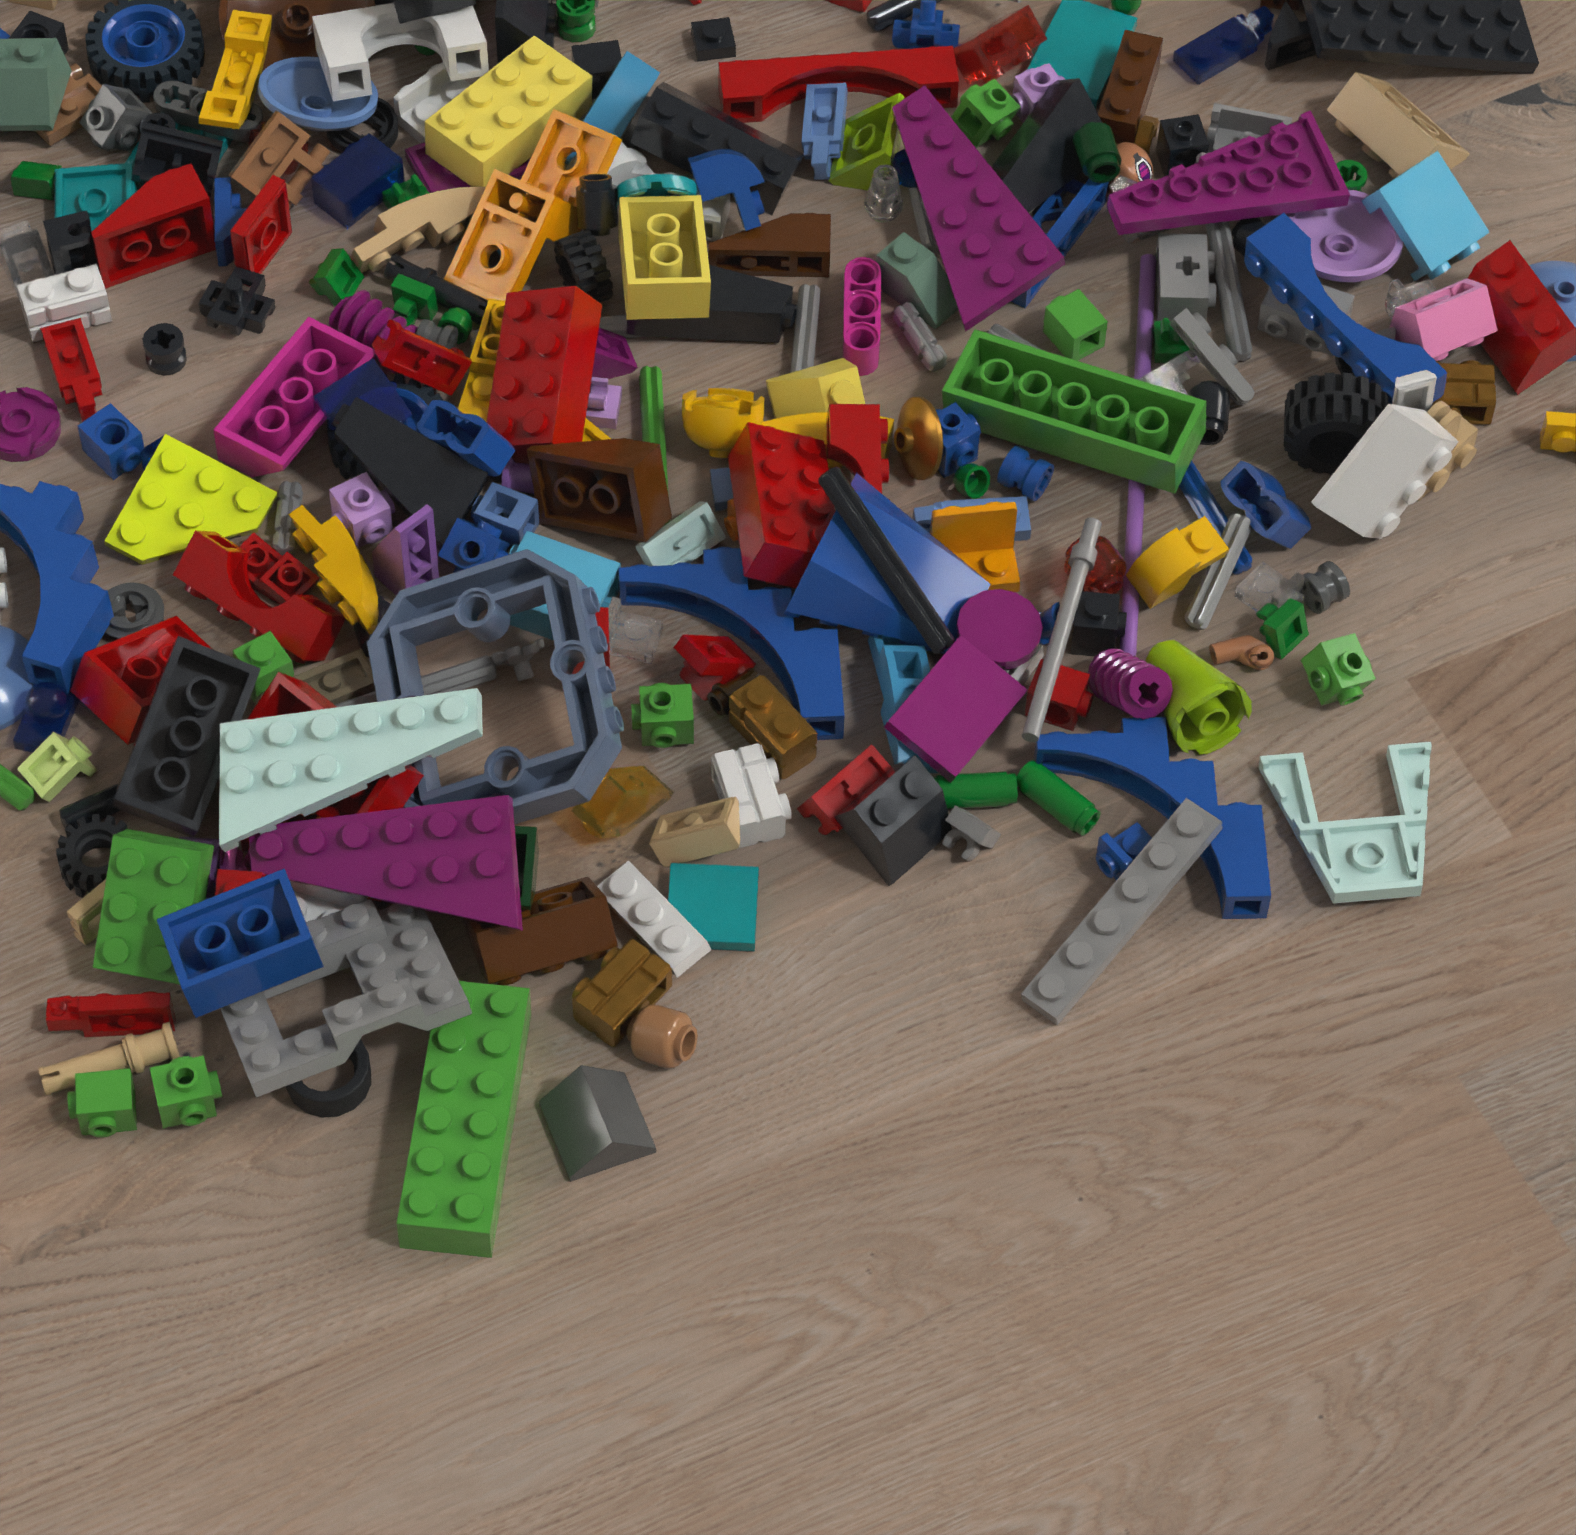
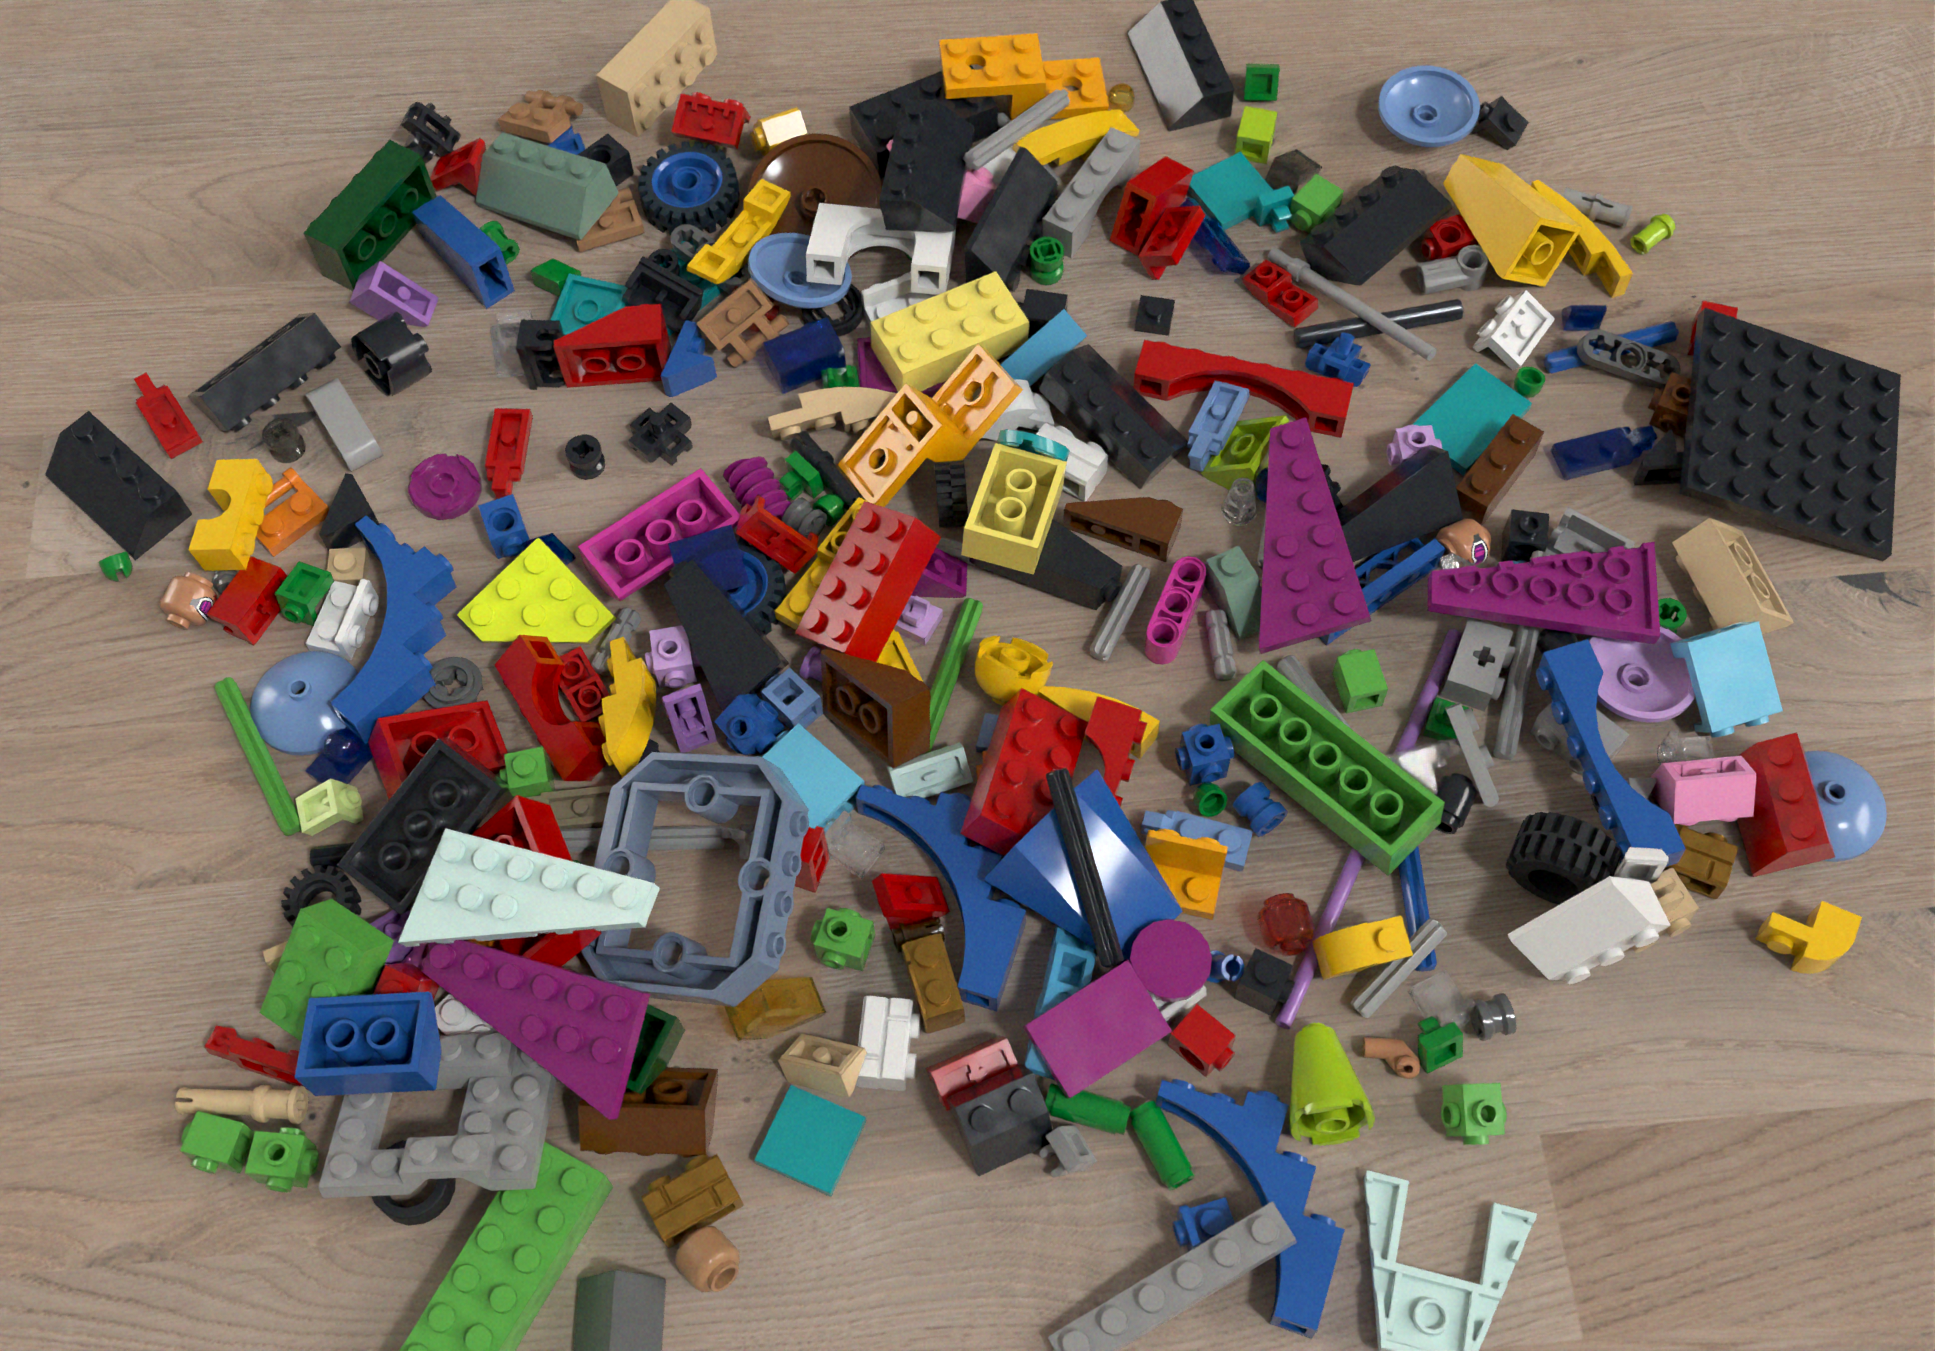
camera: 25 degrees right, 5 degrees up
(63, 299) = (524, 389): white brick -> none
(114, 118) = (632, 240): dark grey brick -> none
(262, 227) = (702, 376): red plate -> none
(337, 276) = (751, 436): green tile -> none
(466, 436) = (774, 624): blue brick -> none
(597, 204) = (978, 440): black brick -> none
(653, 919) = (750, 1137): white plate -> none
(729, 172) = (1104, 447): blue brick -> none
(815, 388) = (1105, 670): light yellow slope -> none
(919, 438) = (1173, 746): pearl gold dish -> none
(985, 113) = (1358, 453): bright green brick -> none
(998, 45) = (1394, 394): clear red brick -> none
(1081, 562) = (1270, 921): light grey bar -> none
(1097, 152) = (1441, 523): dark green brick -> none
(1129, 683) = (1268, 1058): magenta piece -> none
(1146, 132) = (1498, 511): pearl gold tile -> none
(1265, 504) = (1467, 916): blue brick -> none

